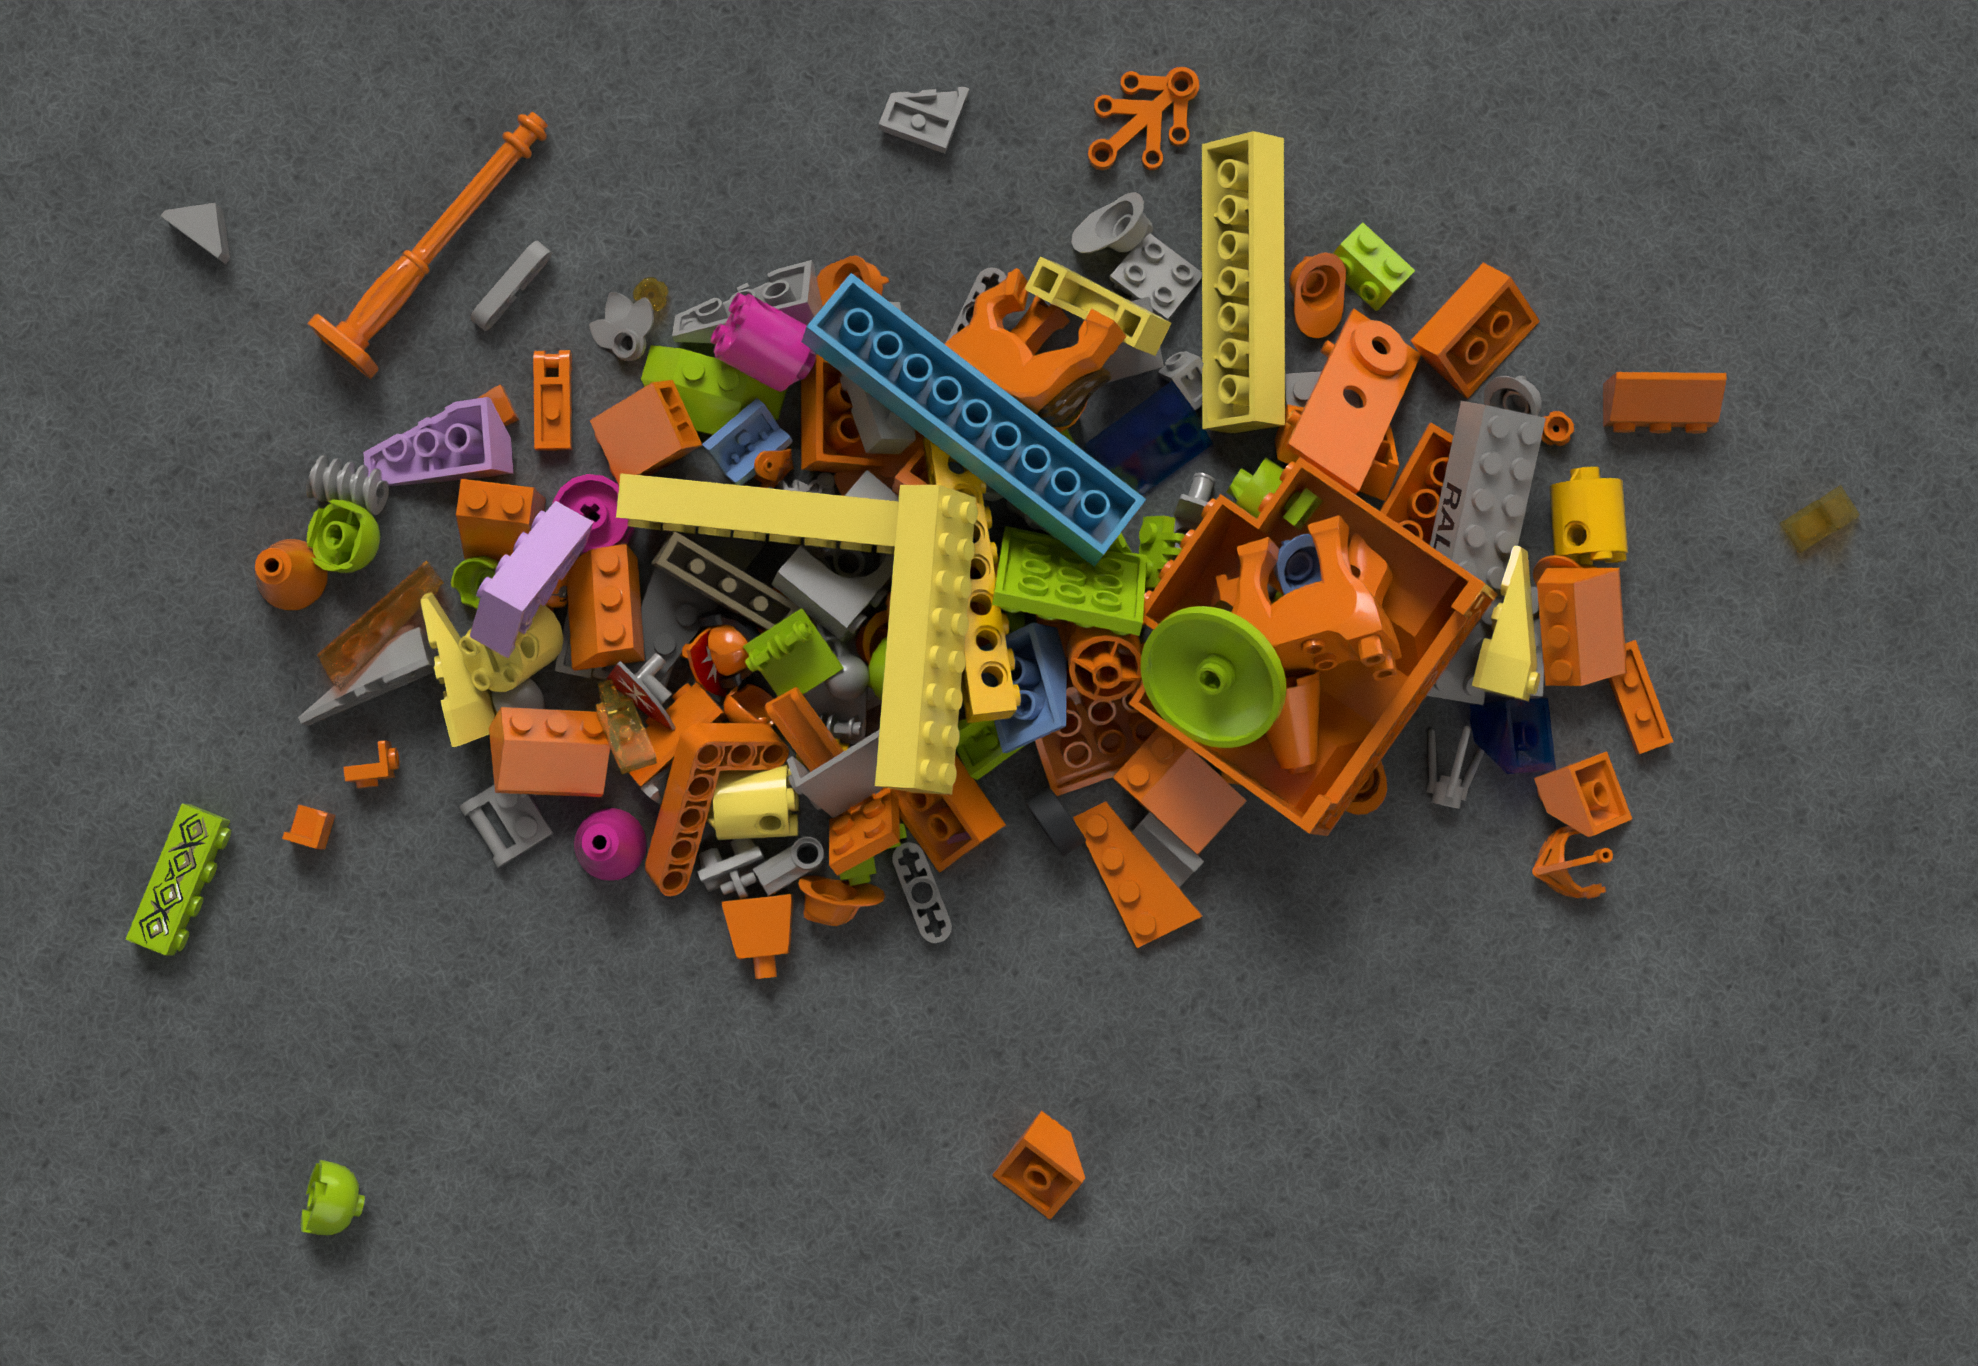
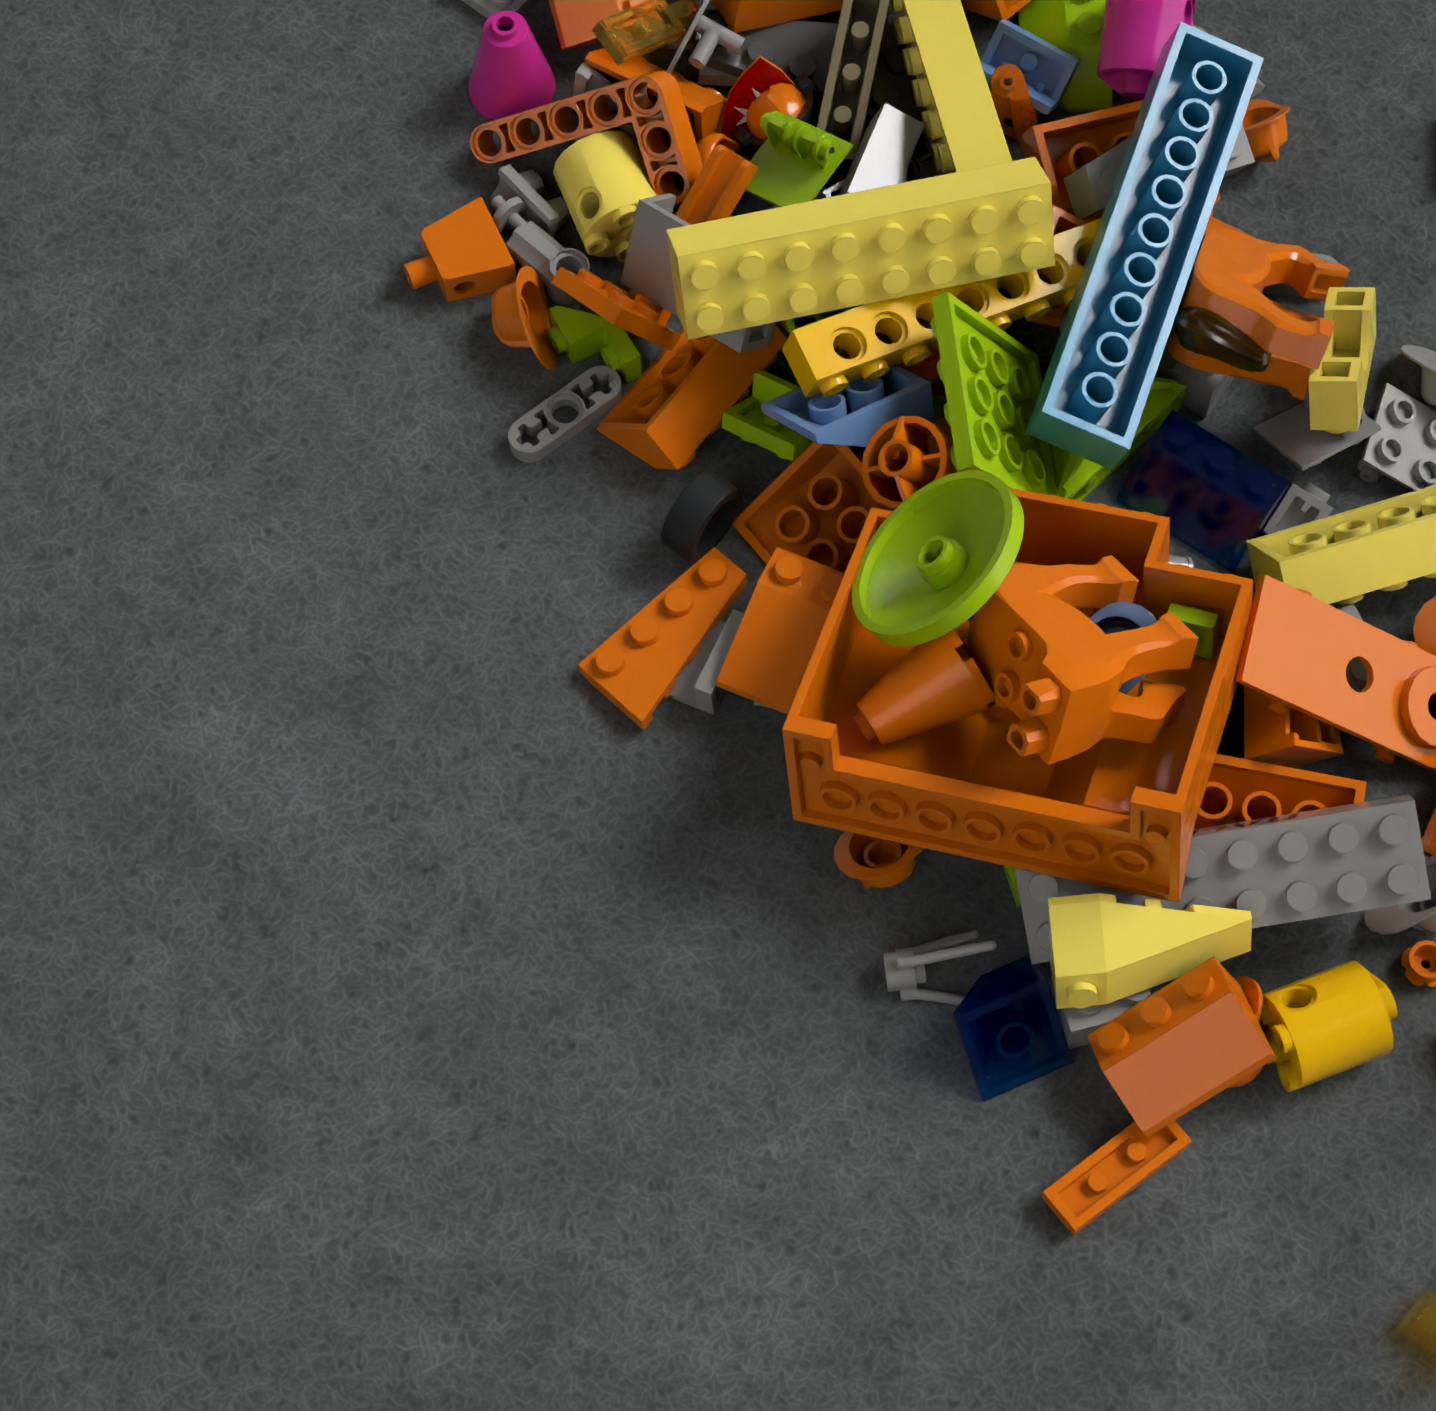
camera: 70 degrees right, 20 degrees down
(1043, 1166) = (276, 628): orange slope -> none
(1552, 867) = (852, 1119): orange helmet -> none
(1585, 795) = (964, 1139): orange slope -> none

